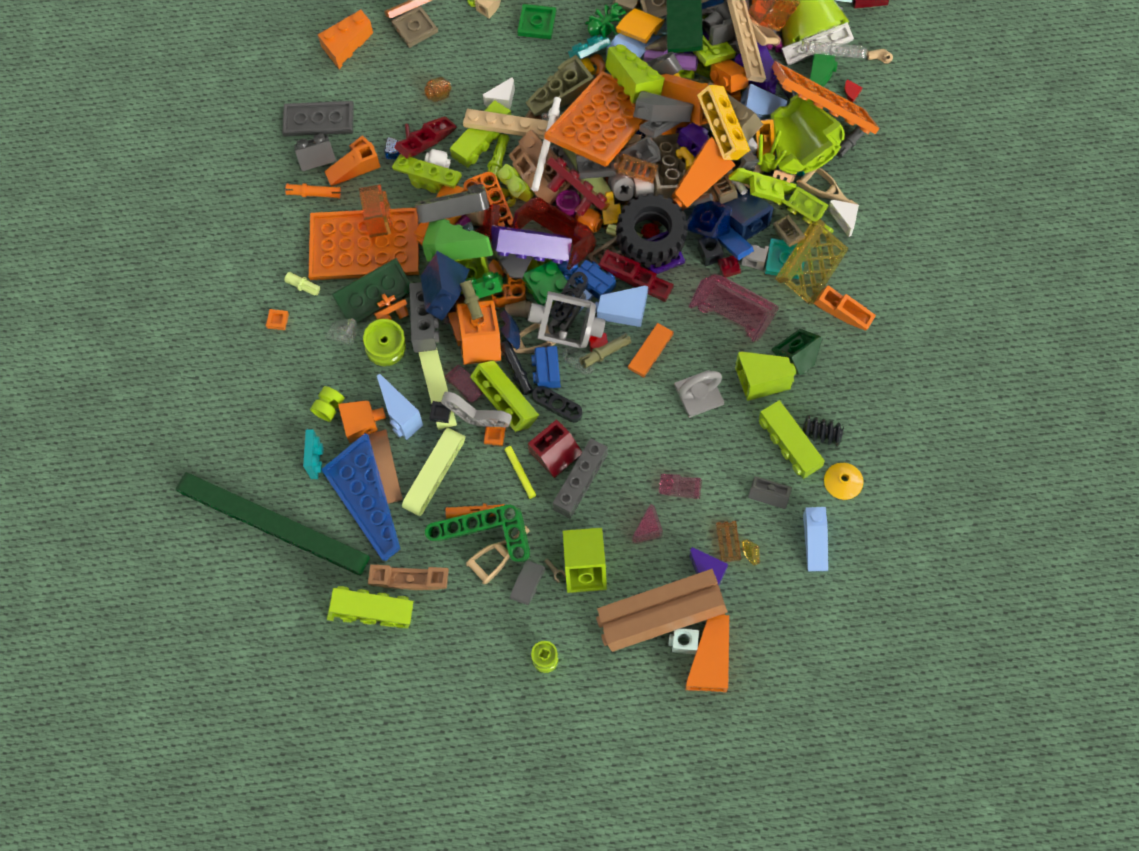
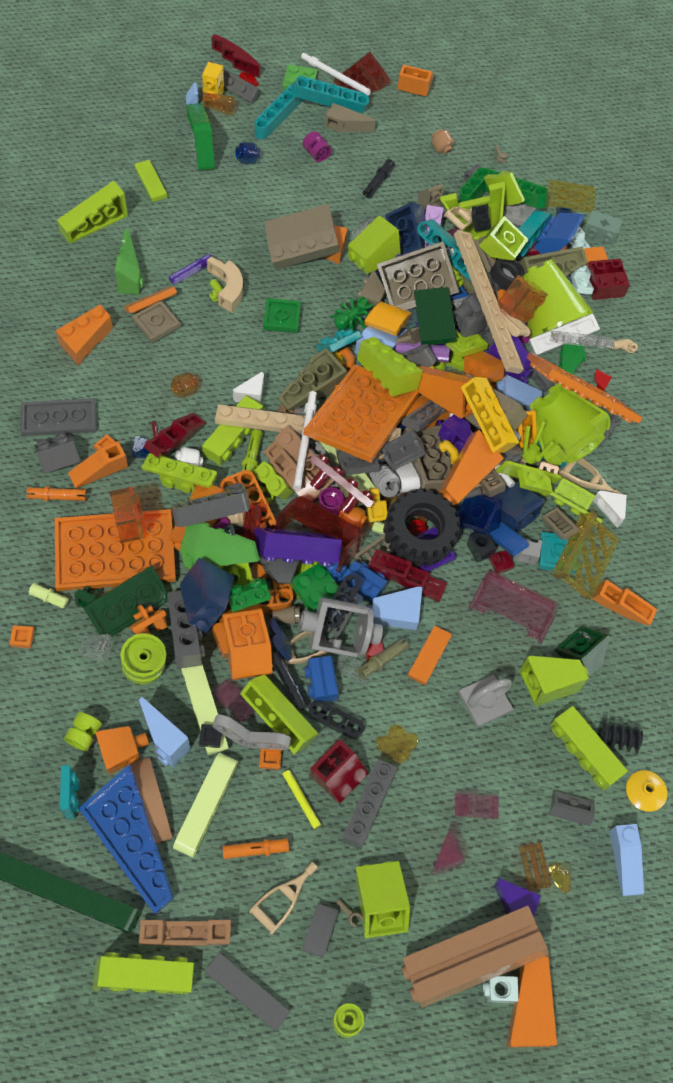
camera: 15 degrees left, 5 degrees down
(333, 284) = (83, 596): none -> dark green tile
(459, 629) = (247, 991): none -> dark grey tile
(471, 299) = (239, 610): olive pin -> none
(483, 524) = (267, 865): green beam -> none
(612, 425) = (397, 741): none -> clear yellow plate
(638, 162) = (386, 461): clear orange slope -> none
(661, 108) = (423, 401): dark grey slope -> none

